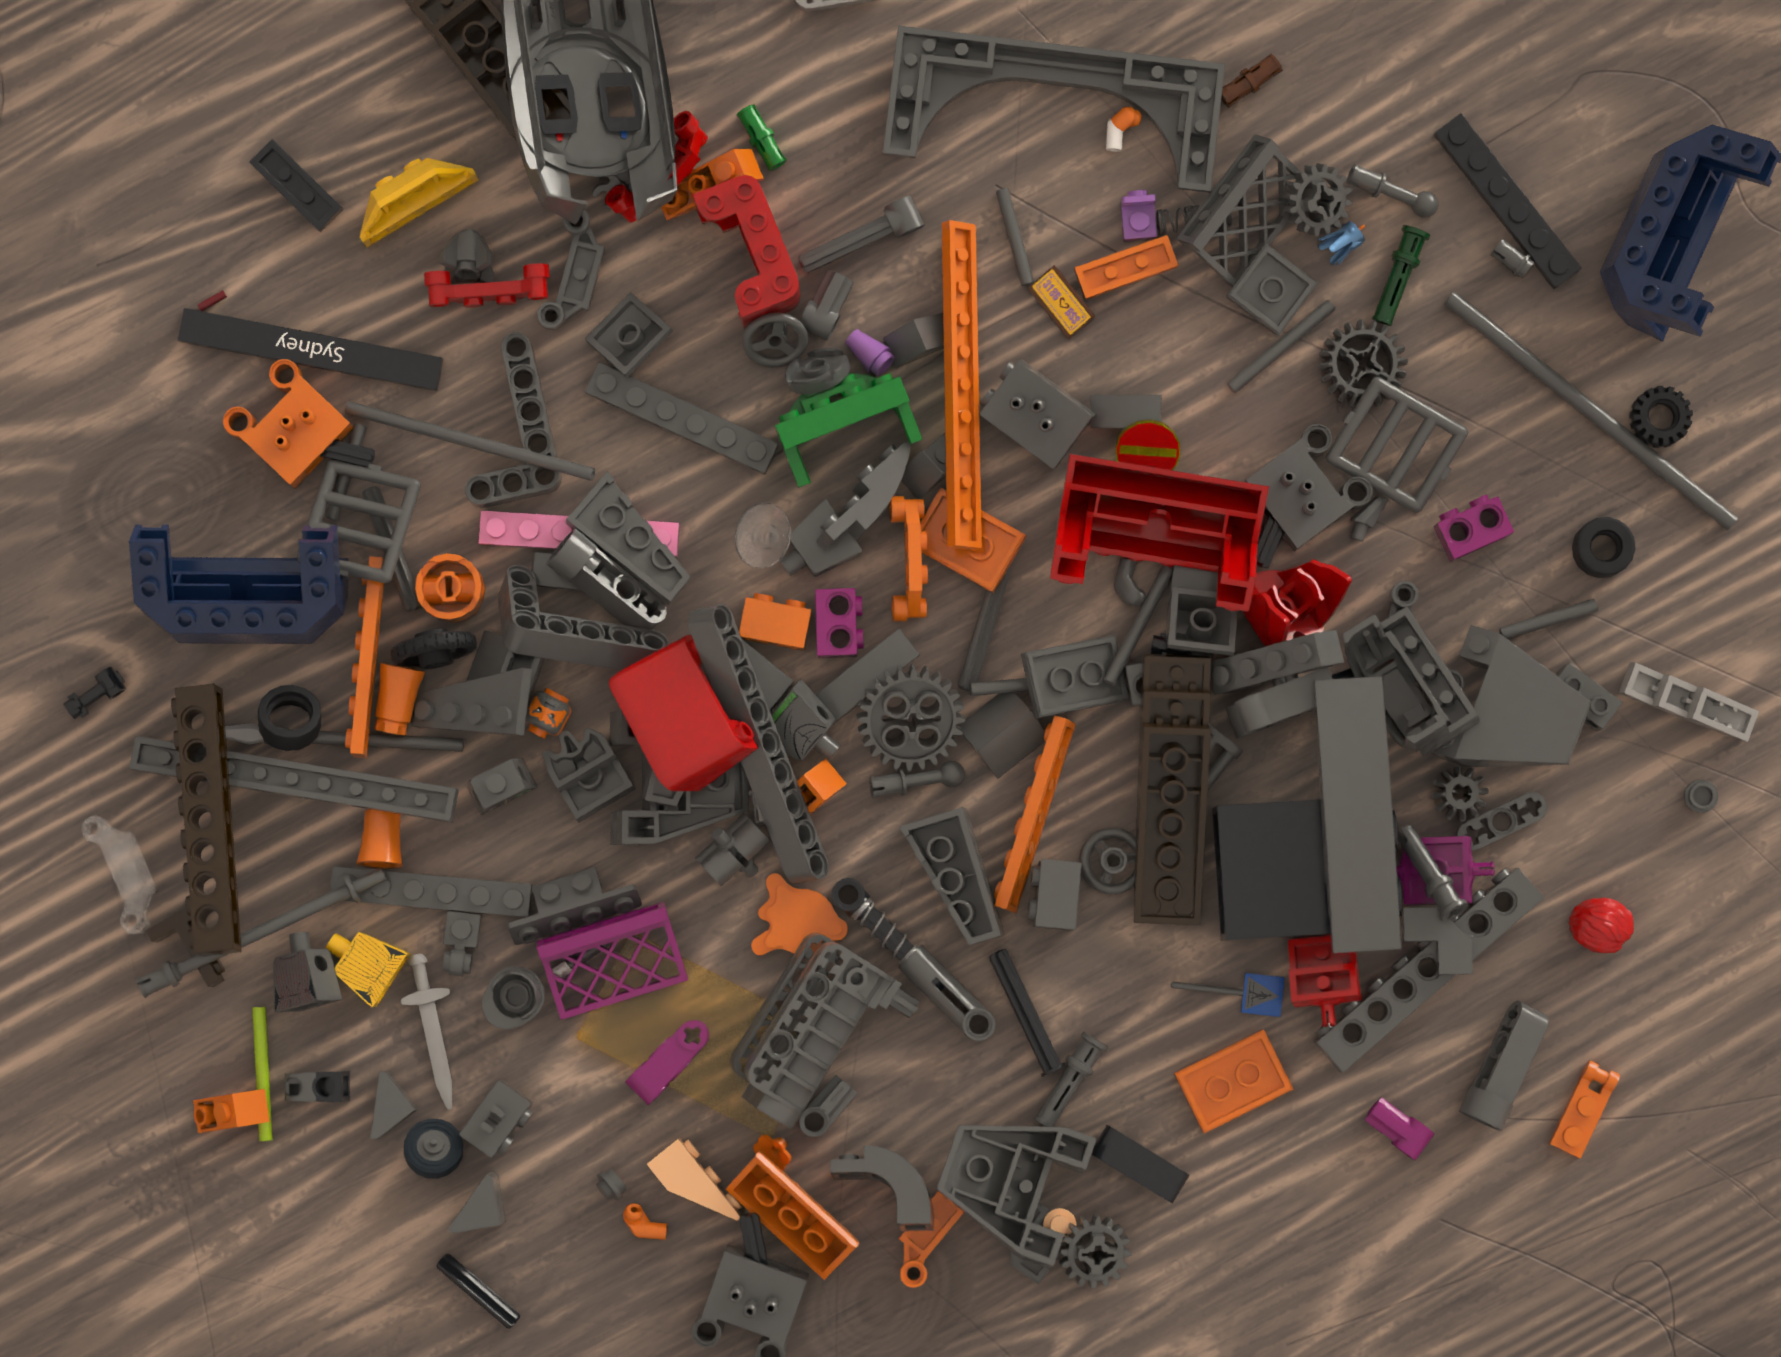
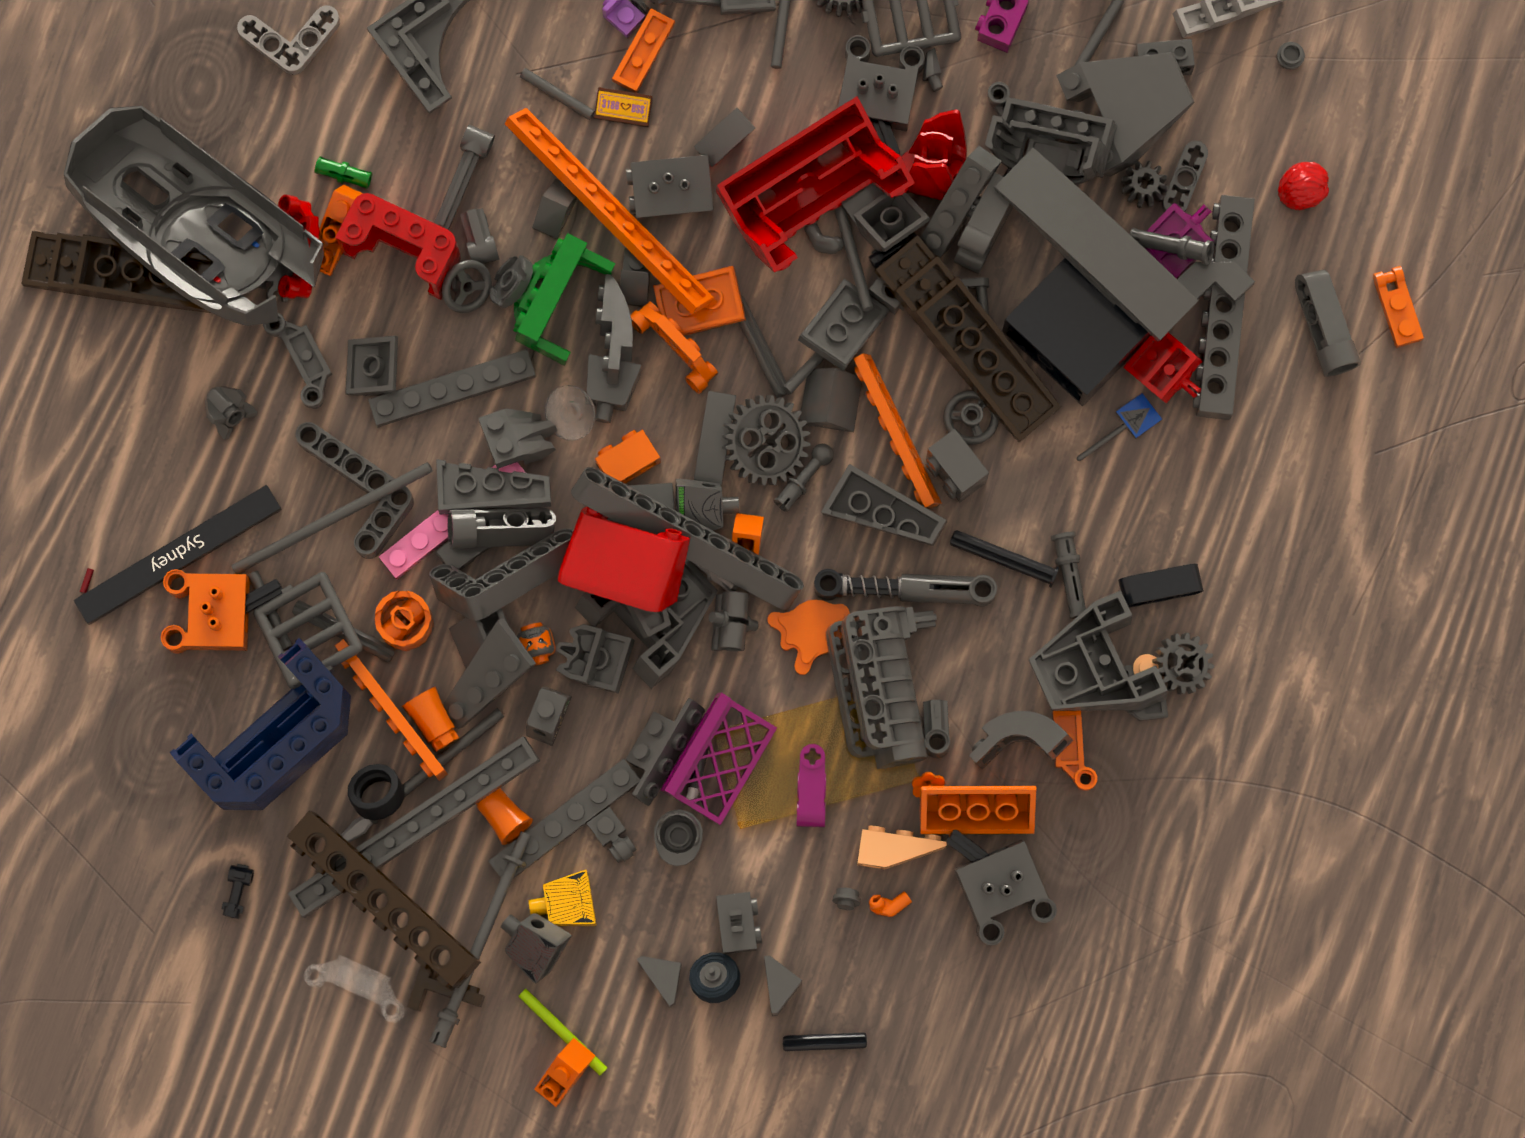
camera: 40 degrees left, 5 degrees down
(296, 185) = (75, 461): black plate -> none
(318, 1086) = (605, 1007): leg -> none
(411, 194) = (155, 400): yellow wedge -> none
(425, 999) = (622, 890): light grey sword -> none
(433, 648) = (428, 665): black wheel -> none
(473, 295) = (269, 409): red plate -> none
(696, 514) = (517, 436): none -> dark grey plate
(829, 623) = (660, 429): magenta brick -> none
(870, 352) = (533, 242): medium lavender cone -> none
(1148, 444) = (755, 141): red piece -> none
(1233, 1081) = (1170, 483): orange tile -> none
(1405, 1132) = (1305, 418): magenta piece -> none

